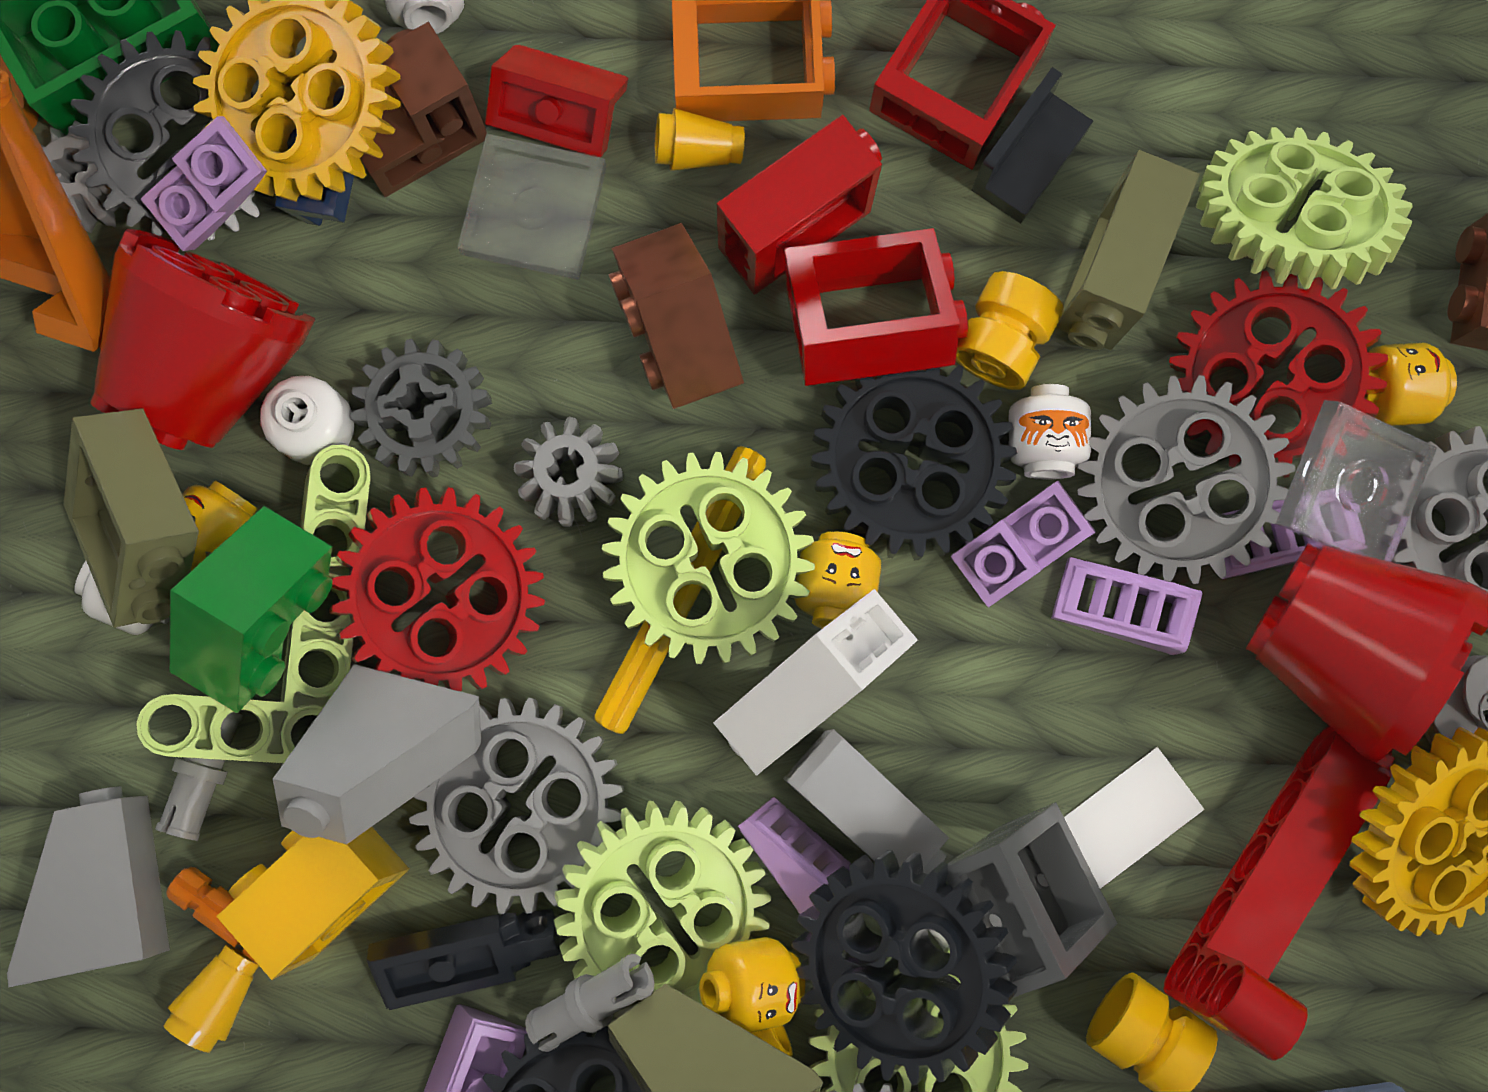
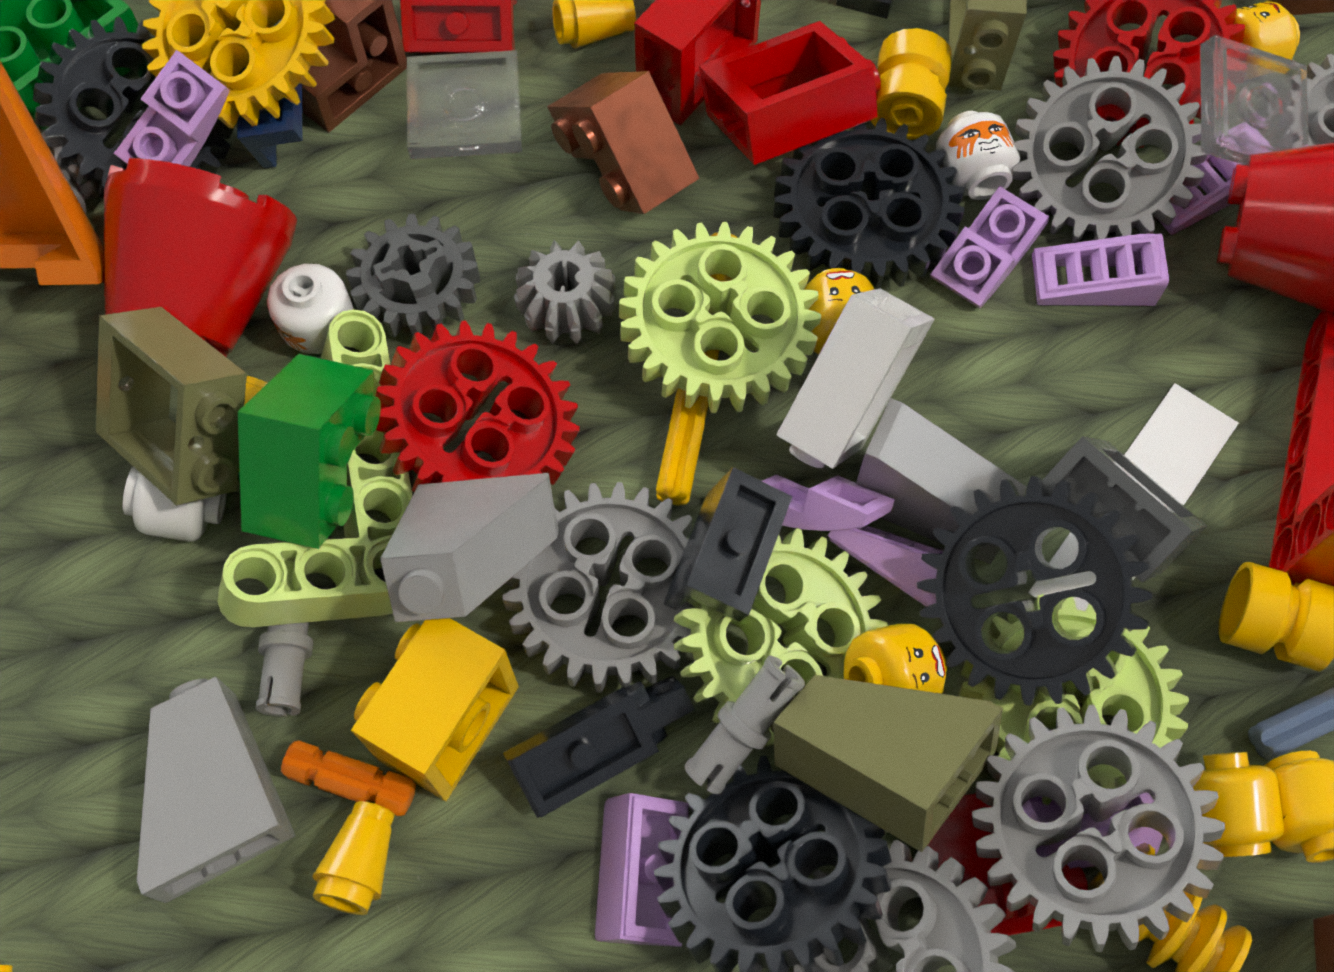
camera: 15 degrees left, 15 degrees down
(630, 824) = (730, 545): none -> black panel
(726, 788) = (831, 504): none -> lavender slope

